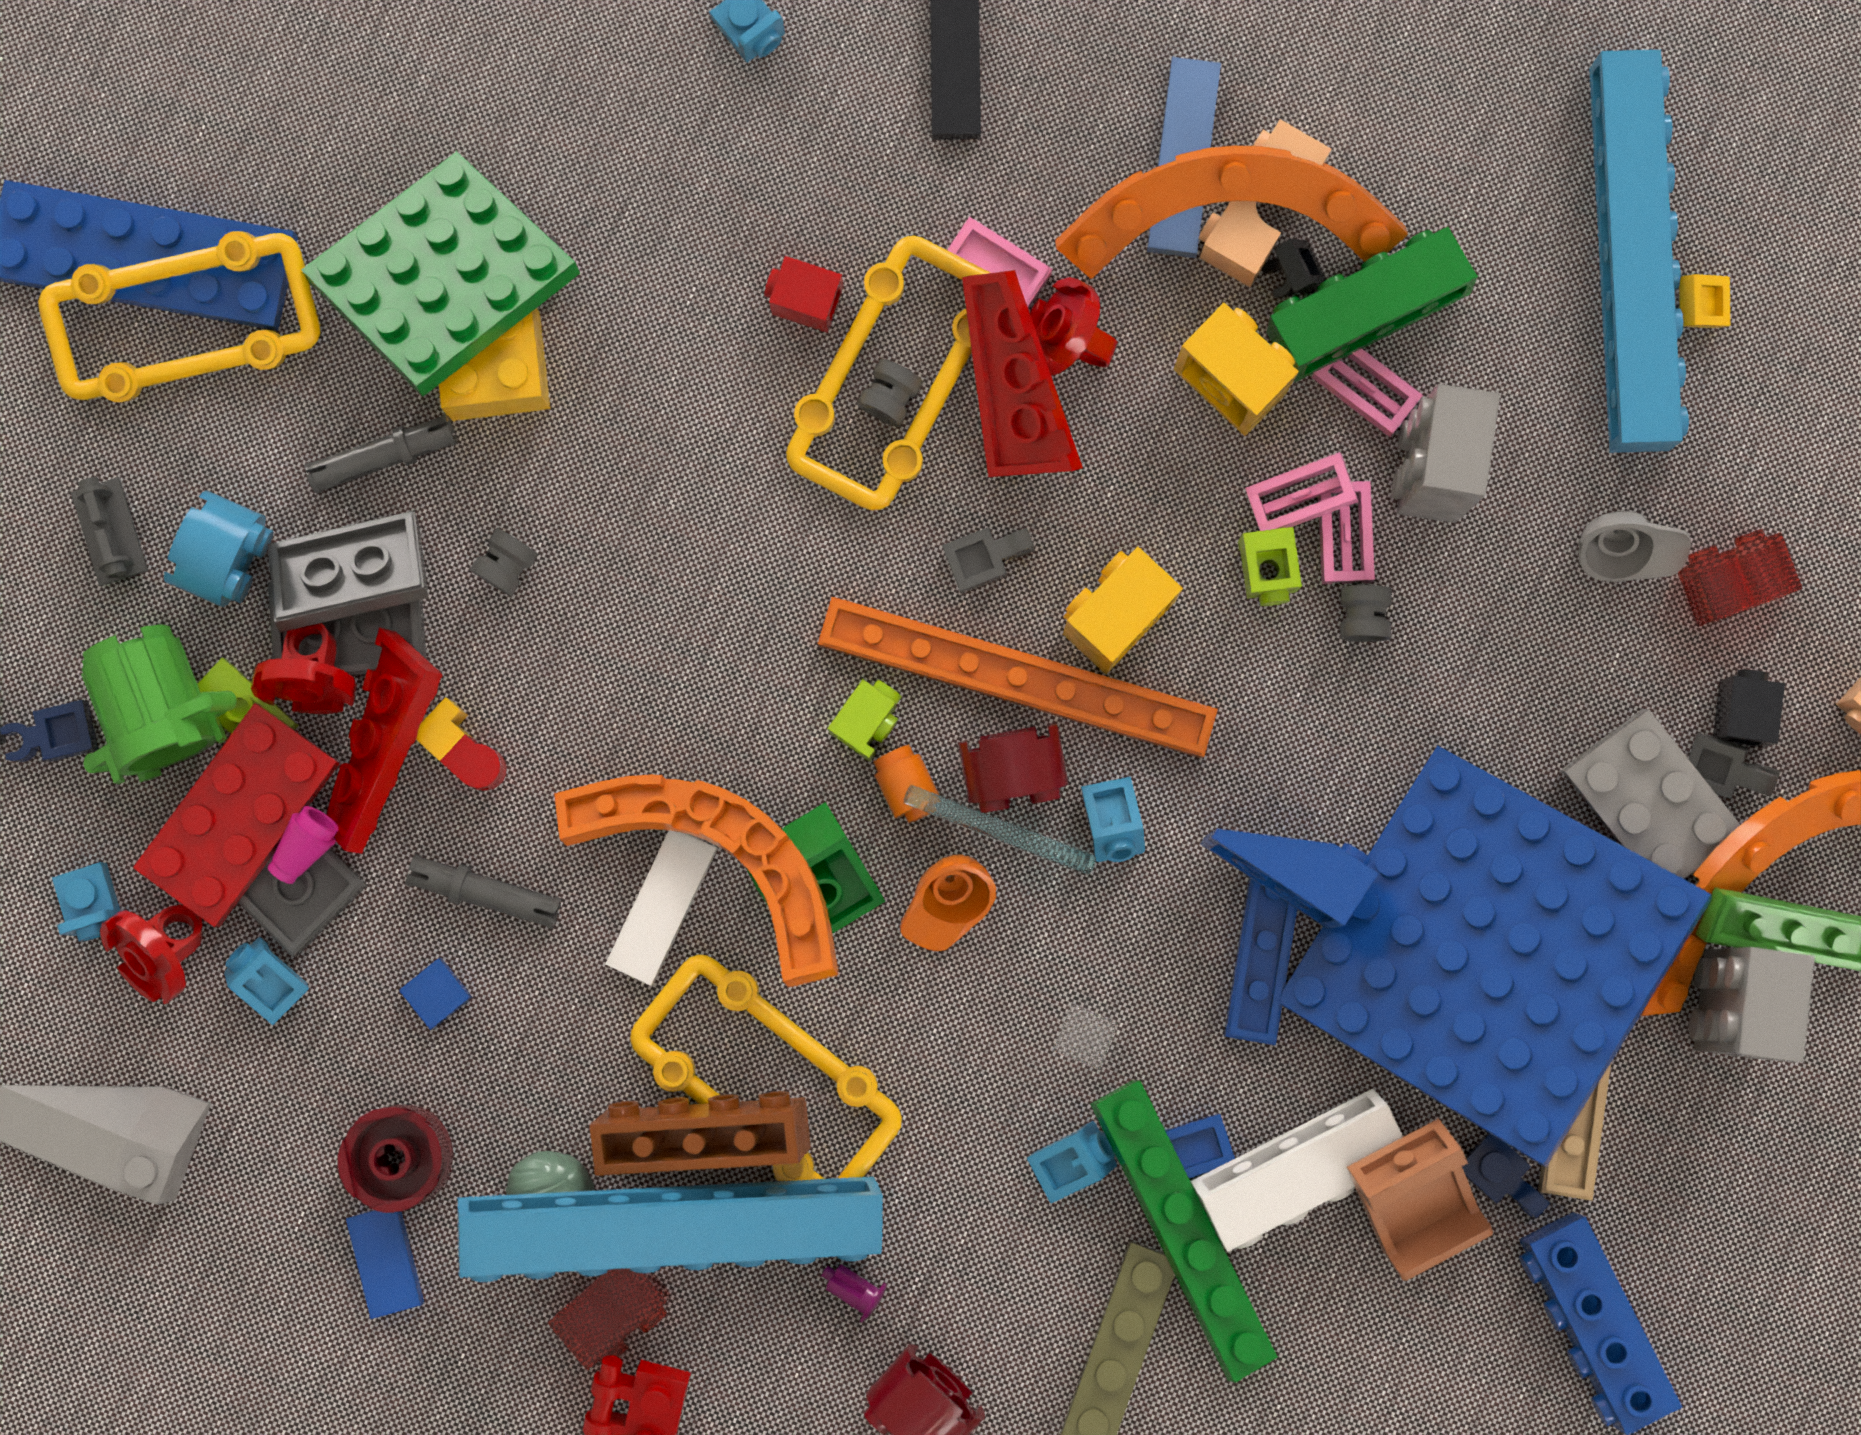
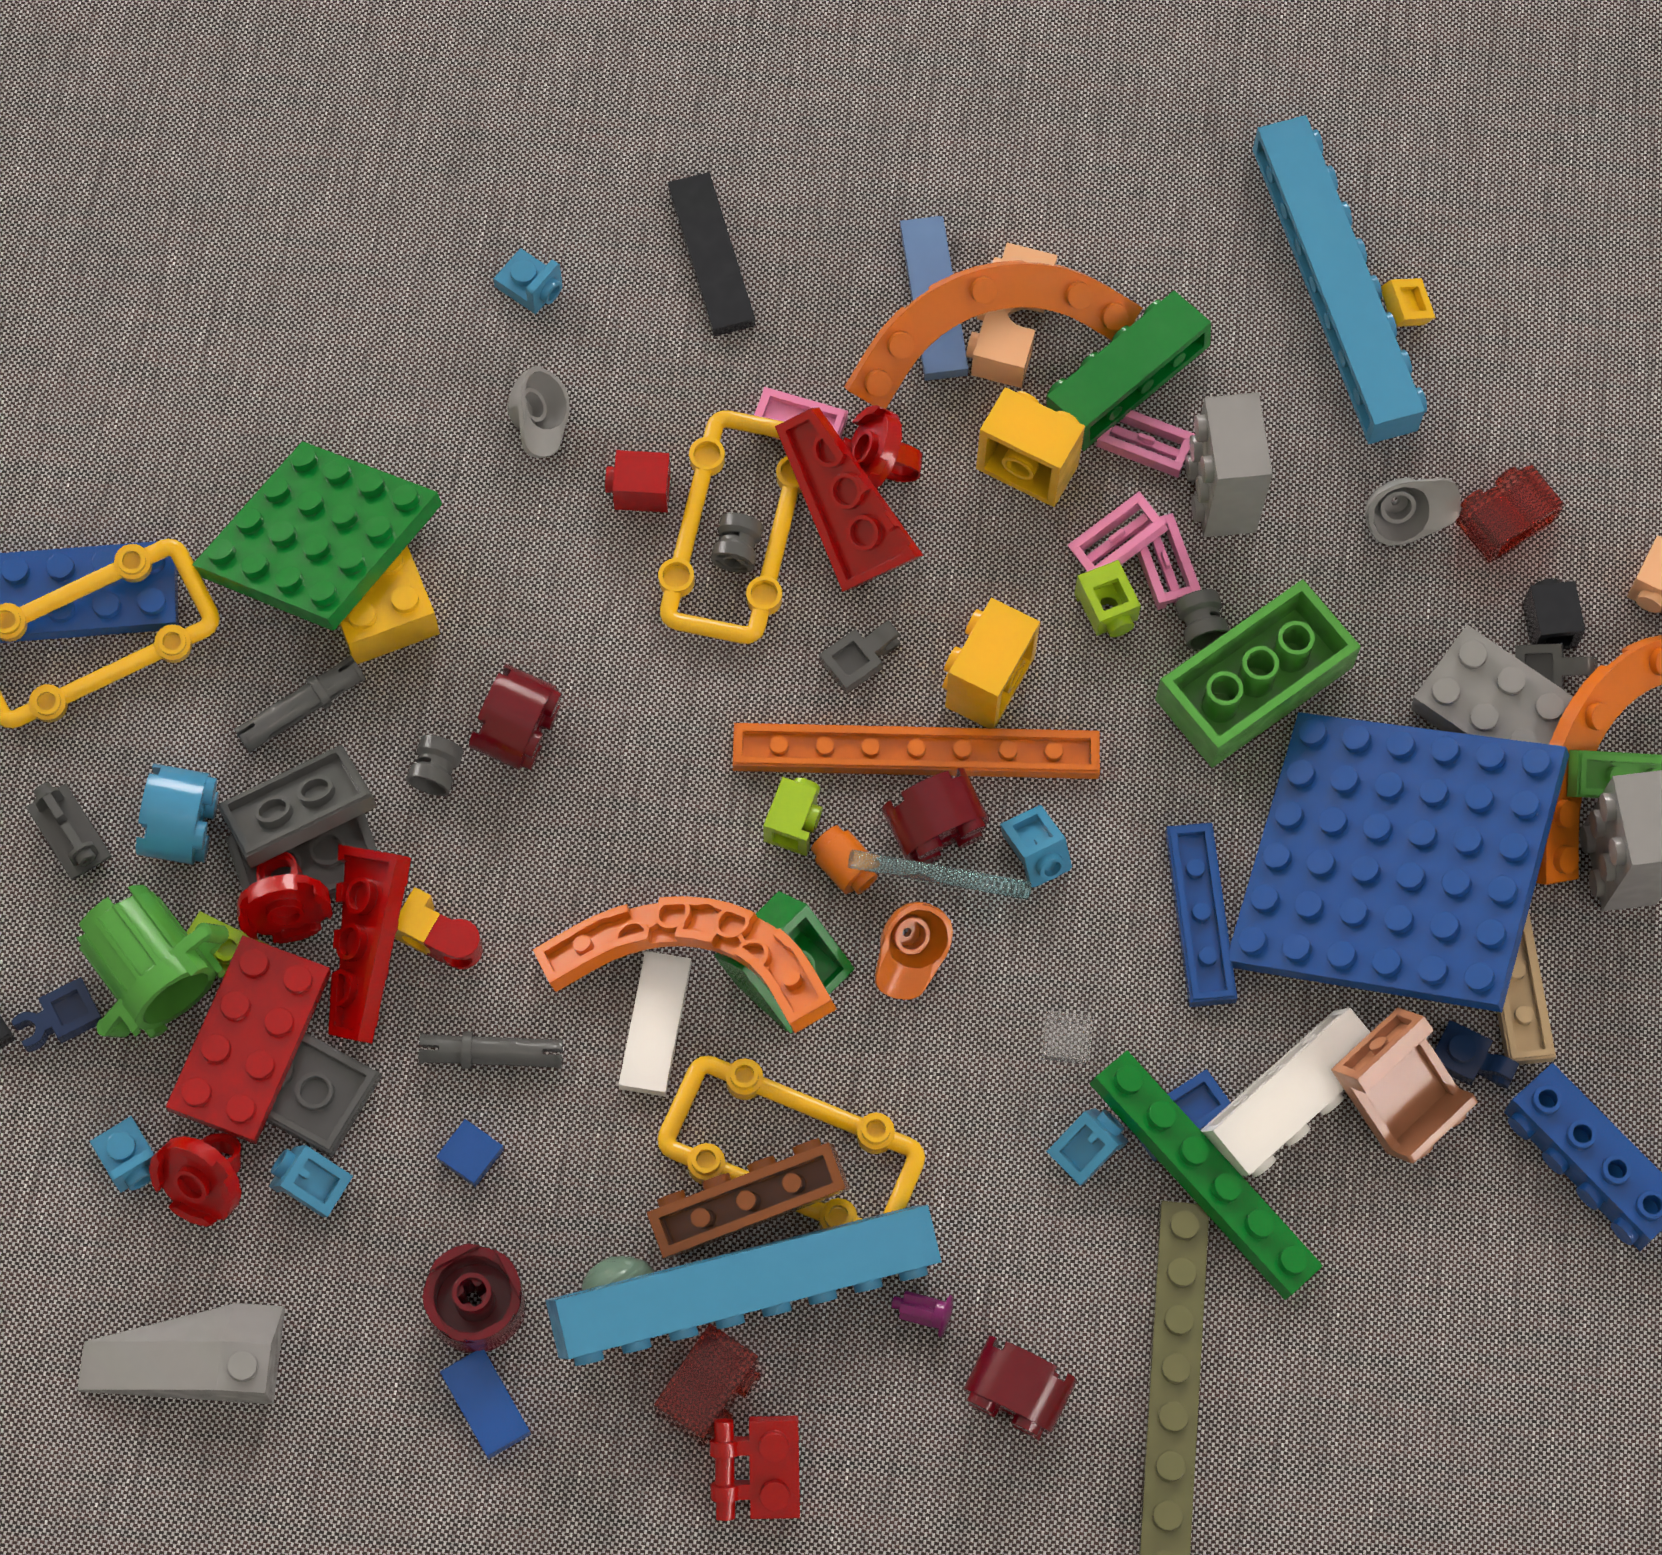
camera: 20 degrees left, 15 degrees down
(302, 844) = (316, 1046): dark pink cone -> none
(598, 535) = (514, 717): none -> dark red brick
(715, 207) = (539, 410): none -> light grey cap
(1299, 266) = (1056, 356): black tile -> none
(1309, 875) = (1206, 833): blue slope -> none
(1406, 694) = (1257, 673): none -> bright green brick

